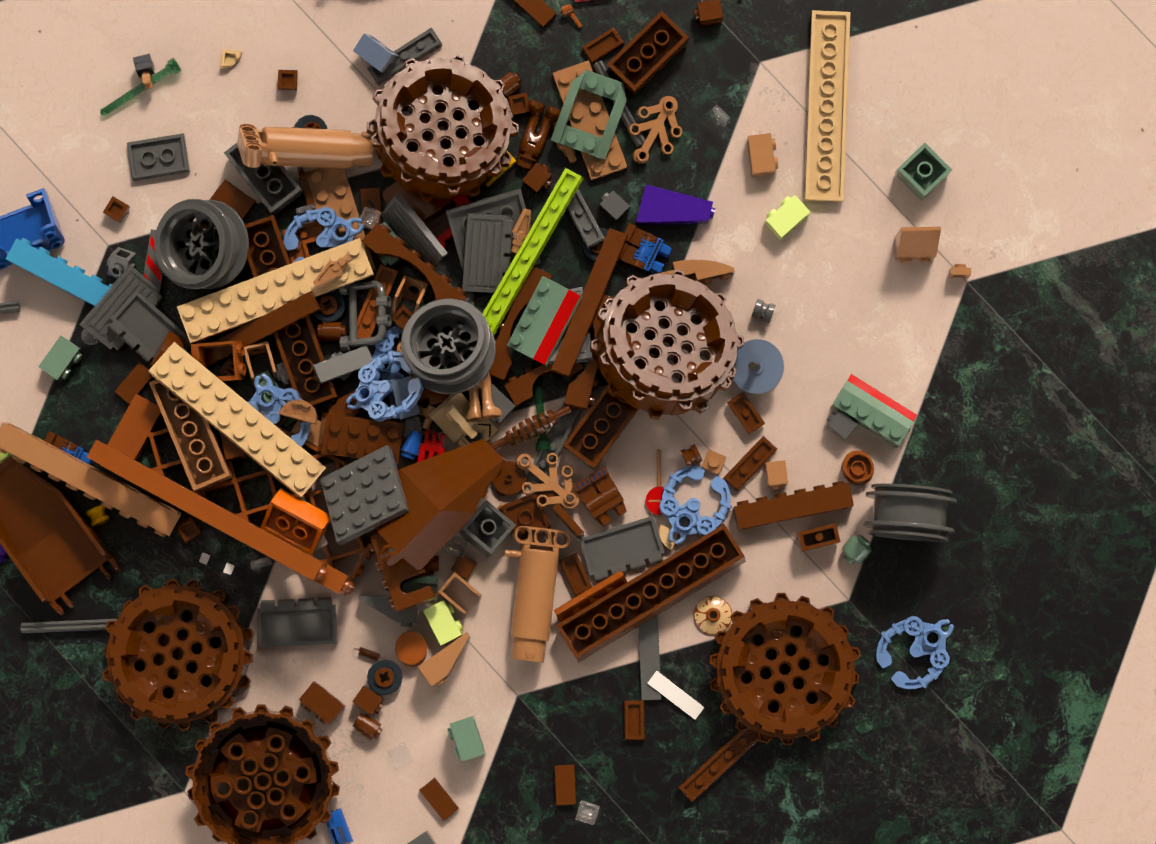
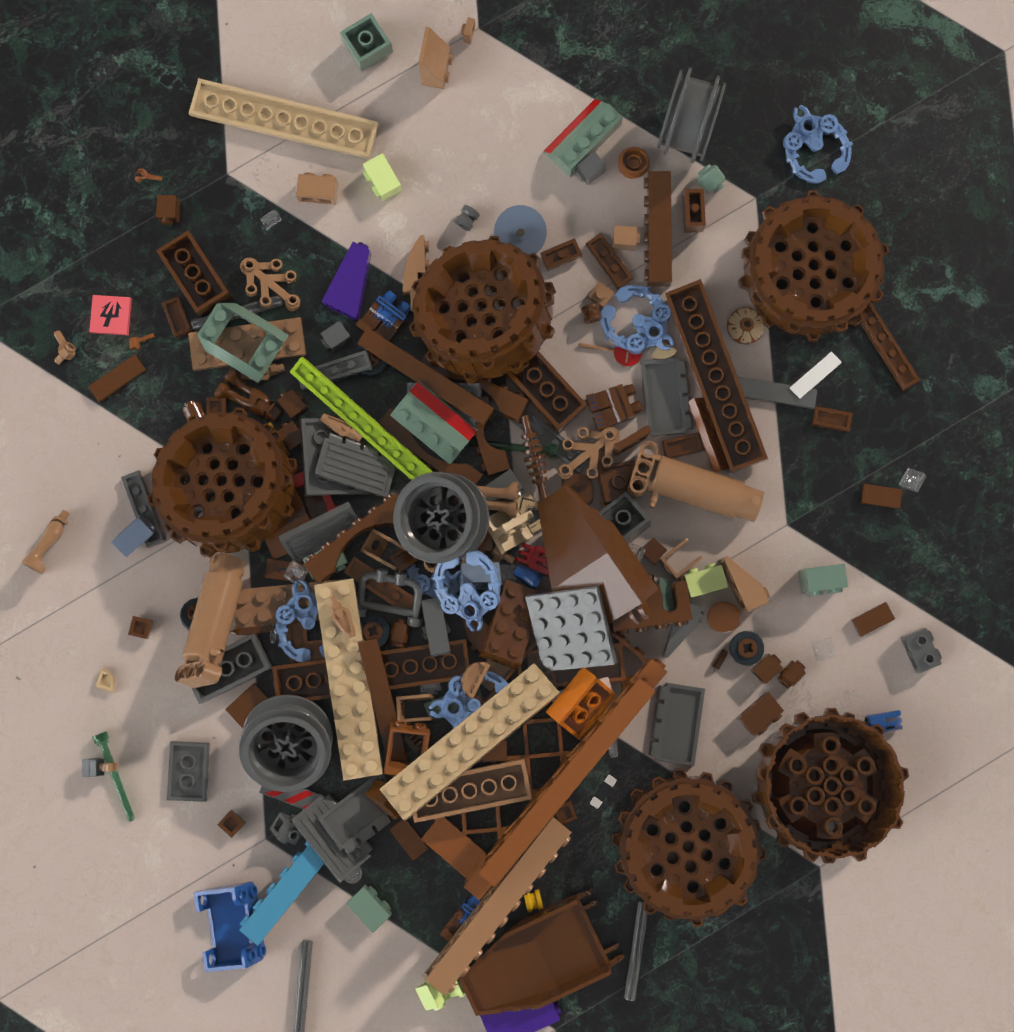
camera: 75 degrees left, 0 degrees up
(505, 182) = (291, 435): none -> reddish brown brick

